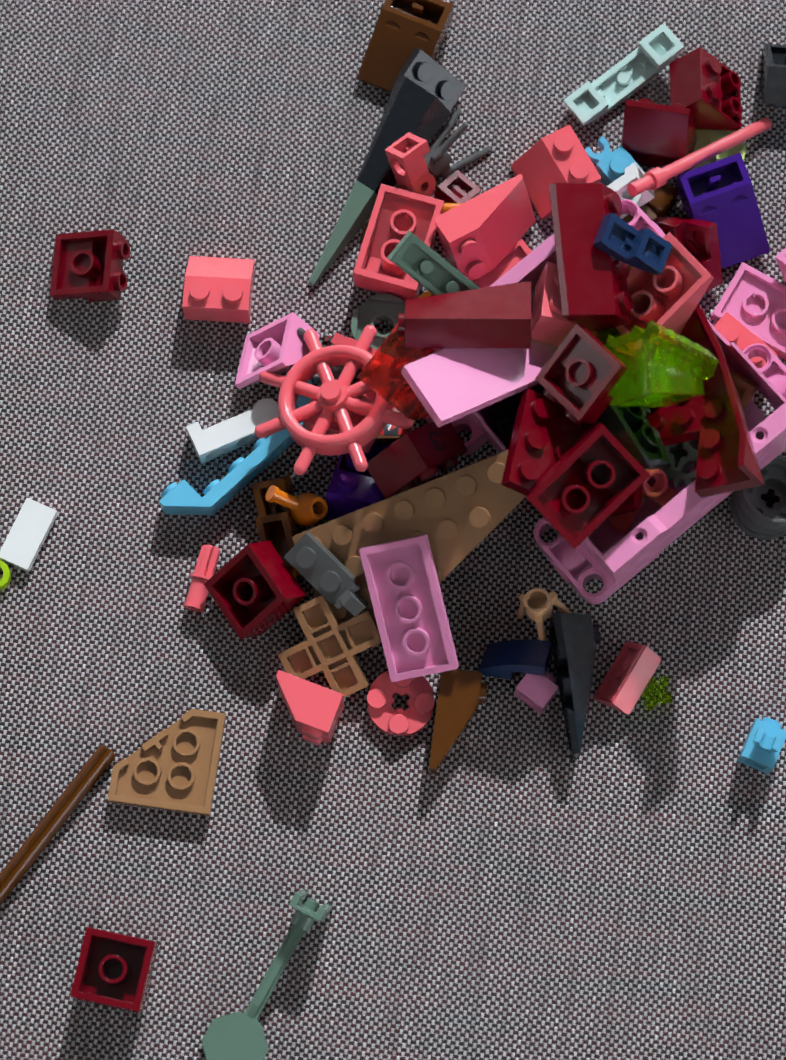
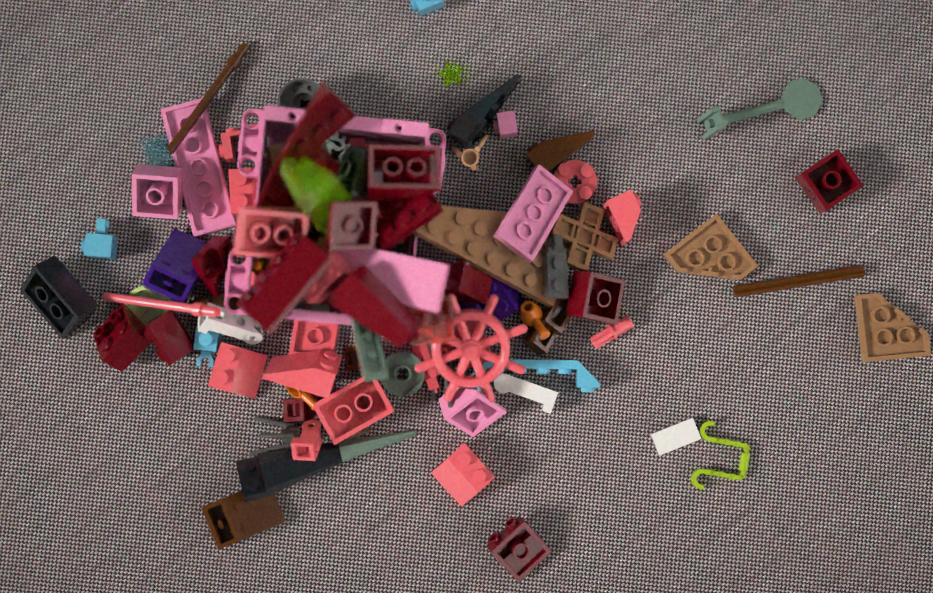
camera: 135 degrees left, 10 degrees up
(512, 656) = (501, 147): dark blue slope -> none
(626, 77) = (151, 388): light aqua slope -> none
(627, 677) = (457, 90): coral slope -> none
(632, 246) = (261, 263): dark blue slope -> none

